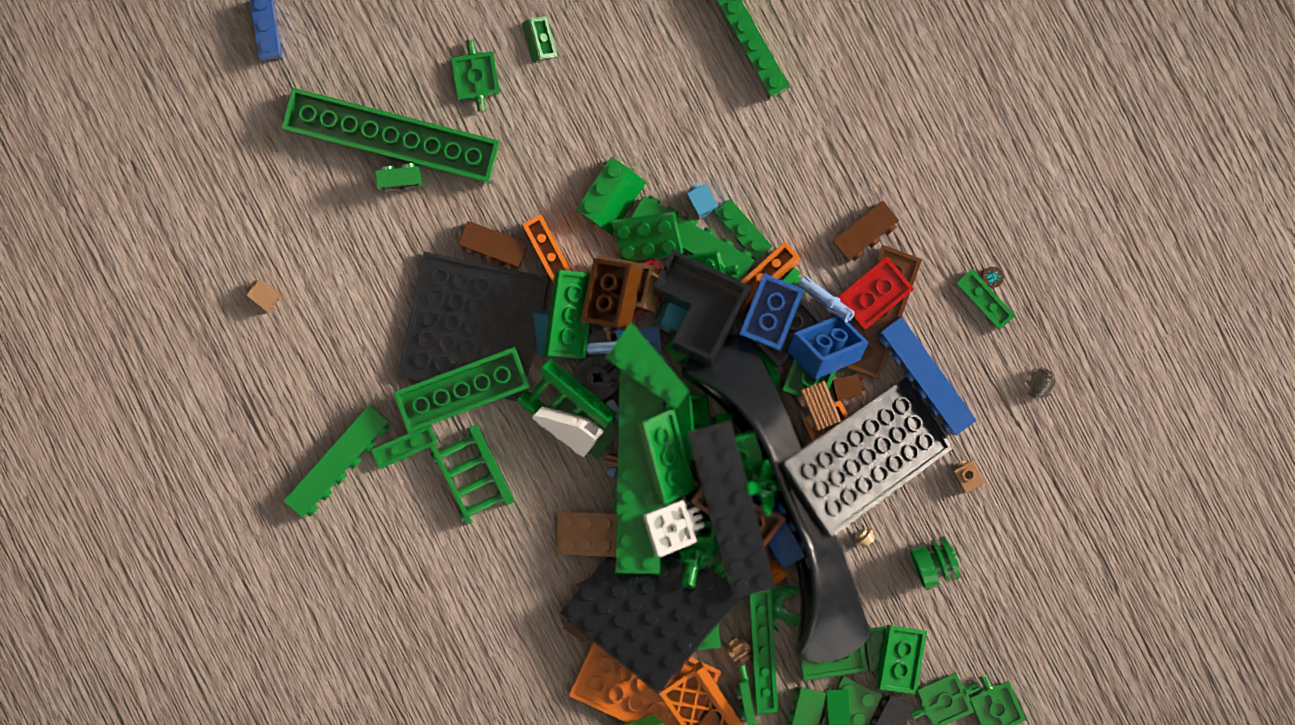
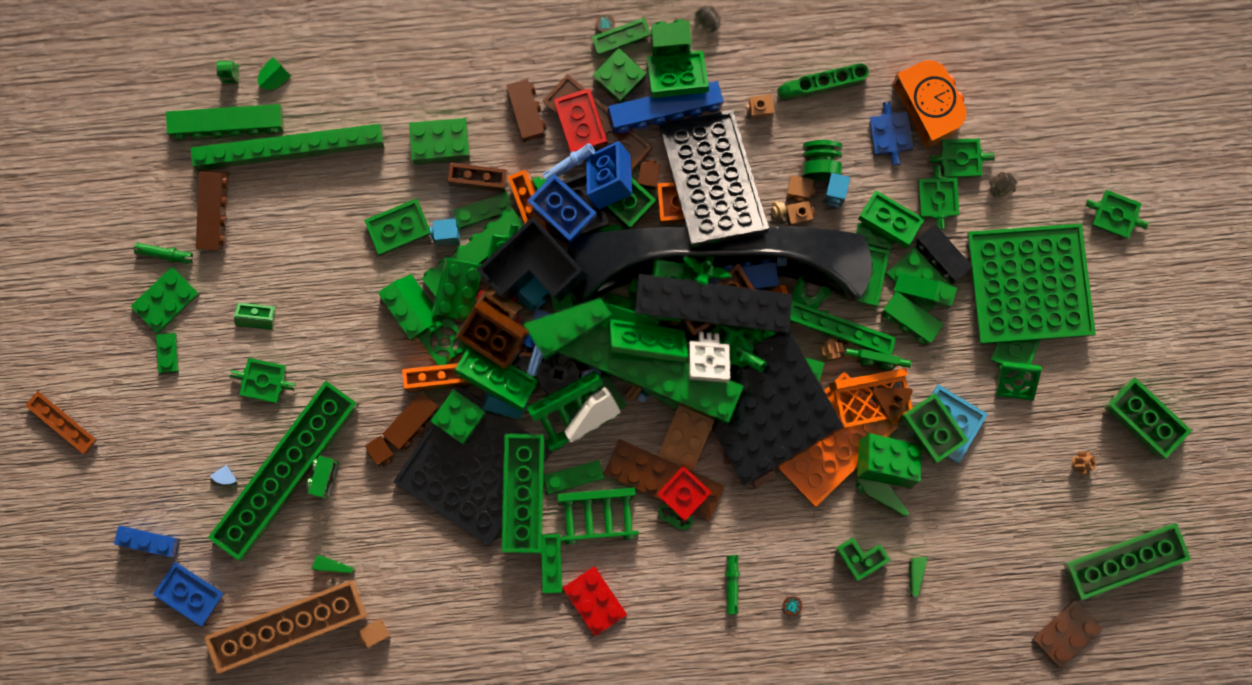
camera: 70 degrees left, 5 degrees down
(230, 91) = (188, 594): none -> blue plate
(235, 204) = (286, 626): none -> medium nougat brick
(314, 219) = (326, 564): none -> green slope
(337, 461) = (541, 626): green brick -> none
(363, 77) = (224, 476): none -> light blue tile
(384, 505) = (594, 601): none -> red plate
(449, 225) = (380, 451): none -> reddish brown brick
(458, 710) = (792, 605): none -> tile
(463, 637) = (732, 588): none -> green pin
(502, 434) = (574, 477): none -> green plate
(507, 555) = (673, 521): none -> green beam
(514, 292) = (458, 417): none -> green brick
(528, 554) = (684, 493): none -> red plate
(535, 528) = (651, 473): none -> reddish brown plate
(585, 225) = (426, 341): none -> green piece
(689, 148) = (397, 226): none -> green plate
(773, 210) = (477, 177): none -> reddish brown brick
(796, 155) = (439, 141): none -> green brick
(819, 406) = (655, 201): medium nougat brick -> none
(870, 561) = (800, 213): none -> medium nougat brick
(896, 552) = (800, 188): none -> medium nougat brick
(908, 590) = (836, 190): none -> dark azure brick
(940, 315) = (619, 76): none -> green brick
(966, 375) = (677, 74): none -> green plate
(995, 624) = (891, 133): none -> blue plate
(1002, 353) = (671, 37): none -> green brick
(1011, 525) = (792, 88): none -> green piece
(1044, 654) = (931, 101): none -> orange brick

